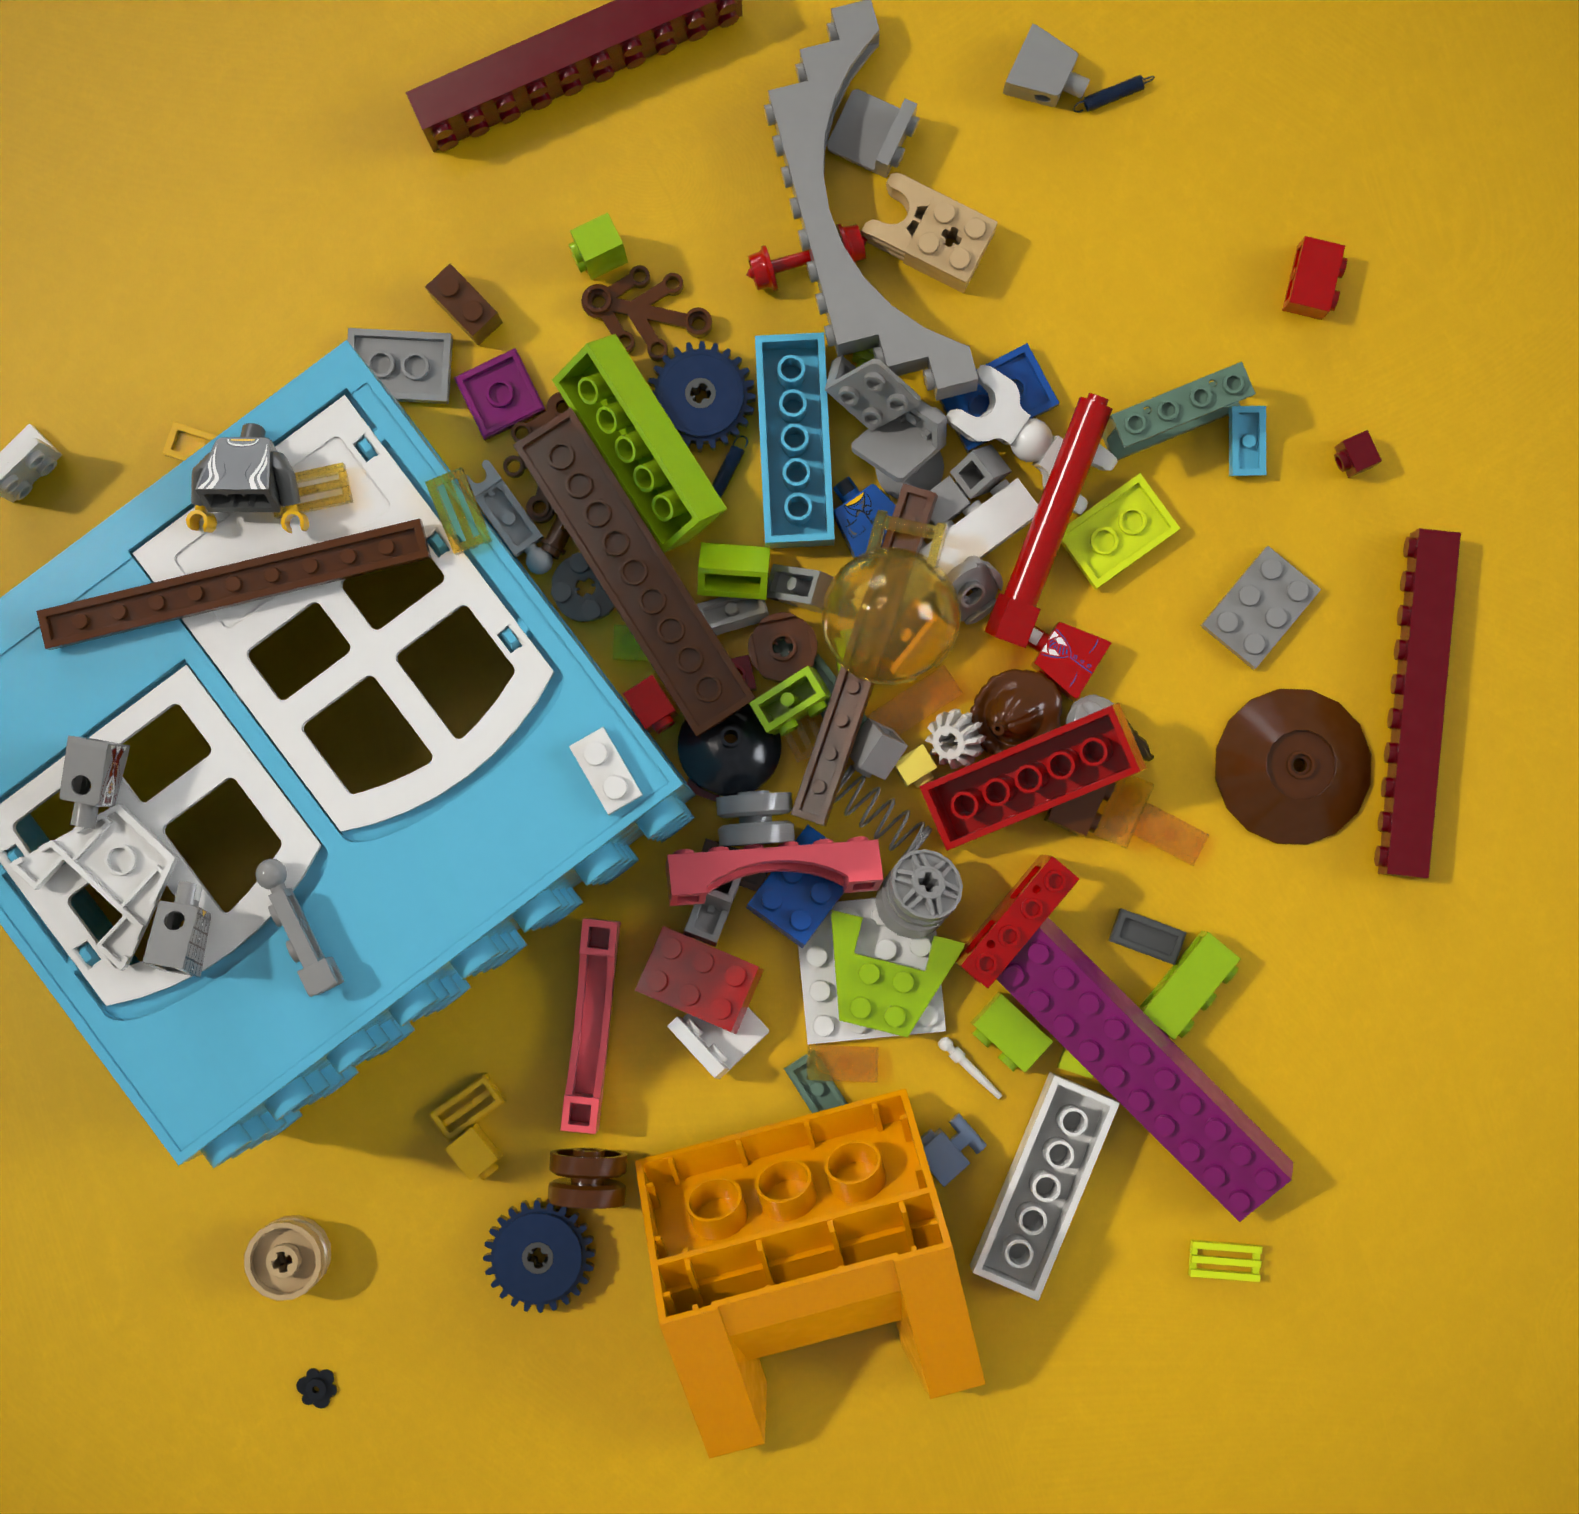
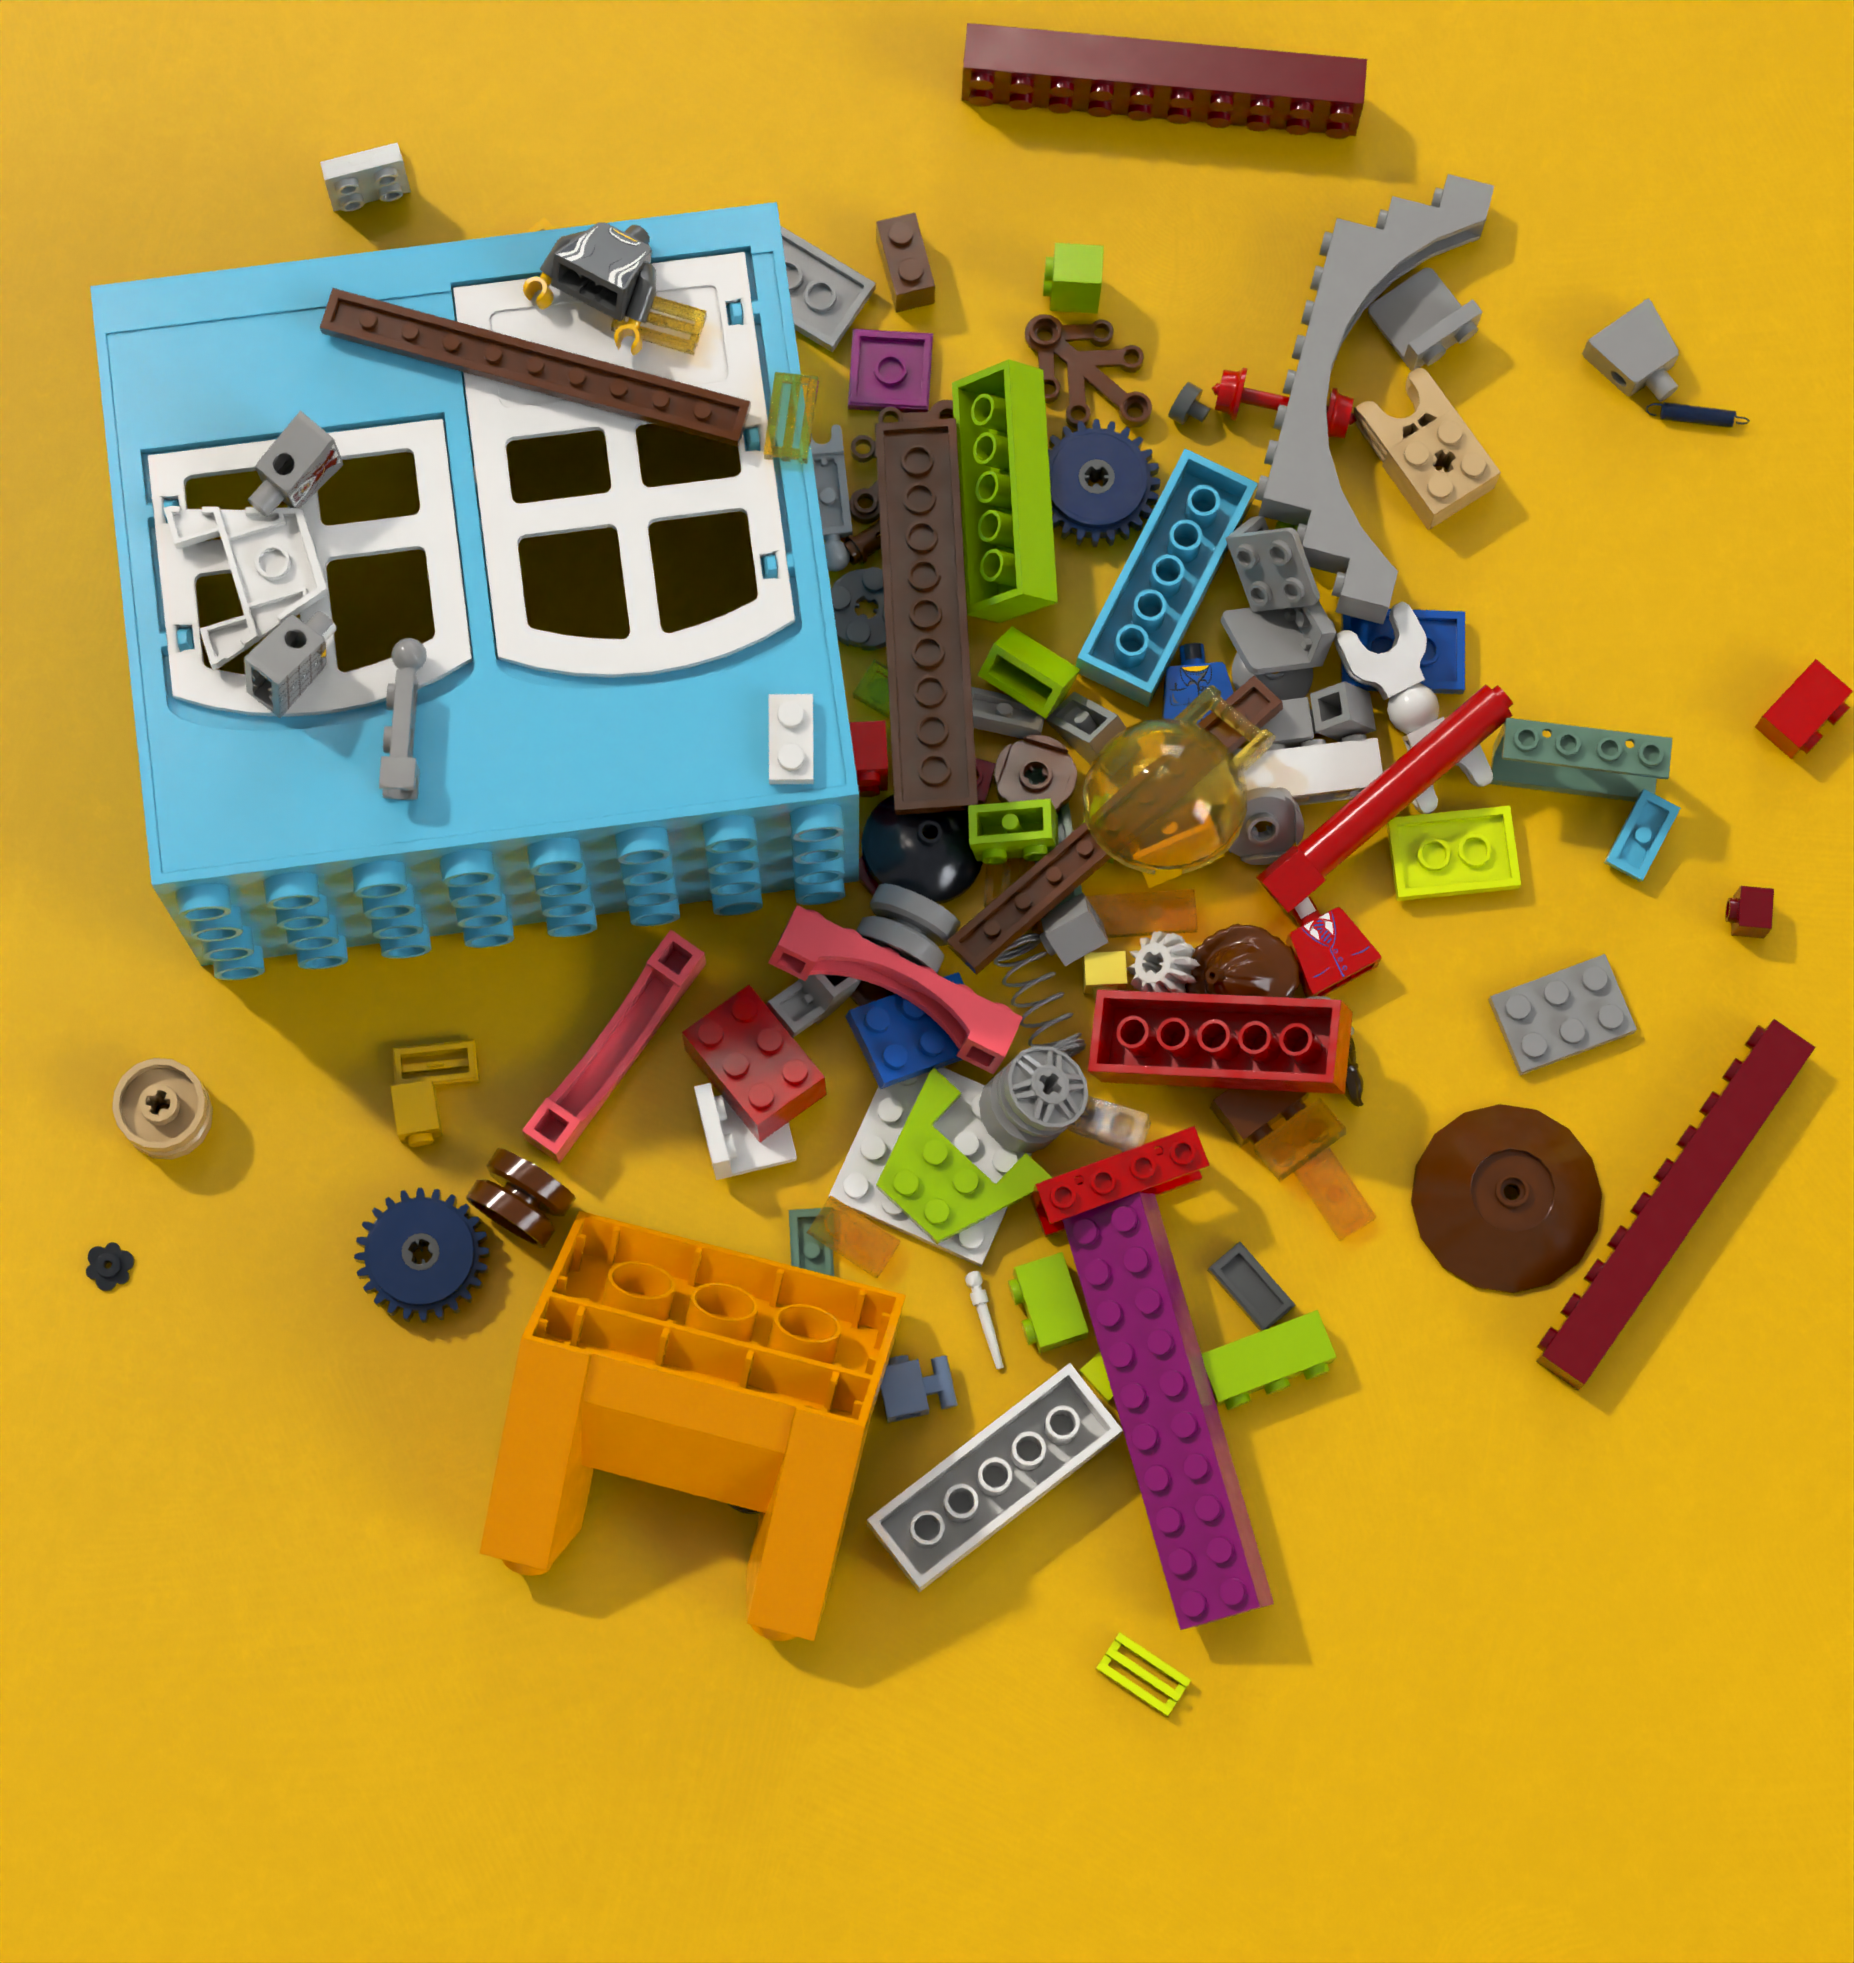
camera: 25 degrees right, 10 degrees down
(728, 468) = (1082, 570): dark blue piece -> none
(736, 297) = (1188, 405): none -> dark grey tile
(986, 875) = (1112, 1124): none -> clear leg

